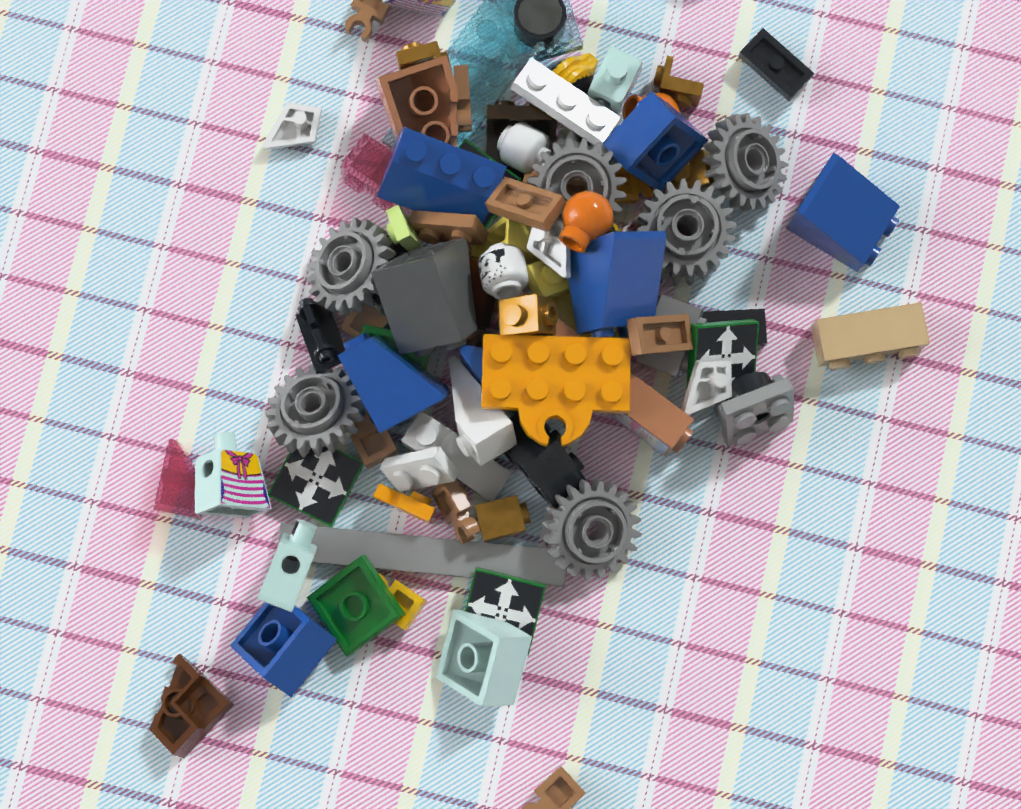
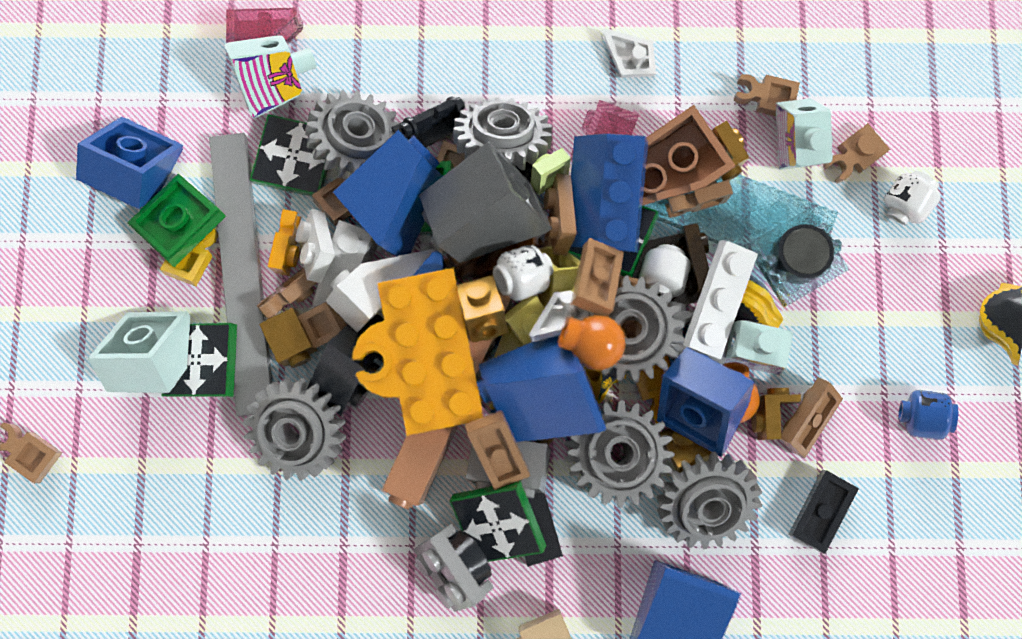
camera: 80 degrees right, 0 degrees up
(188, 709) = (54, 92): reddish brown slope -> none
(287, 576) = (201, 143): light aqua torso -> none
(496, 480) = (321, 324): none -> medium nougat plate
(689, 52) = (811, 417): none -> medium nougat plate
(708, 385) = (460, 513): white piece -> none

